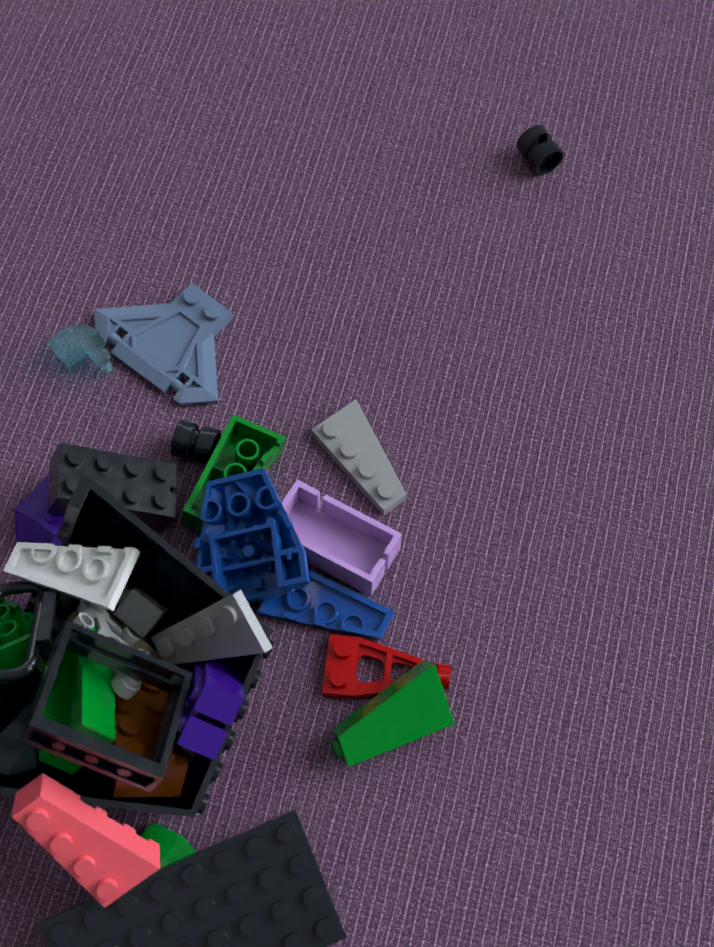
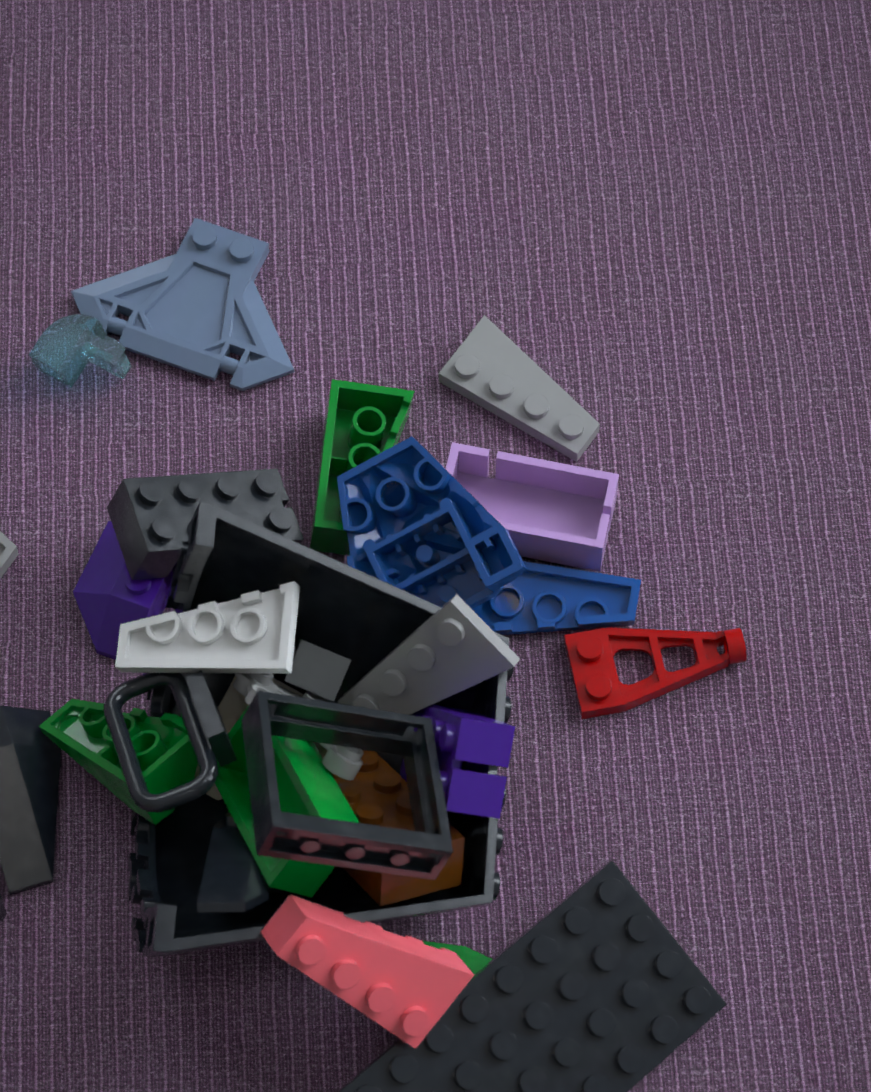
camera: 15 degrees left, 0 degrees up
(191, 441) = (289, 434): black wheel -> none
(394, 717) = (692, 712): green slope -> none

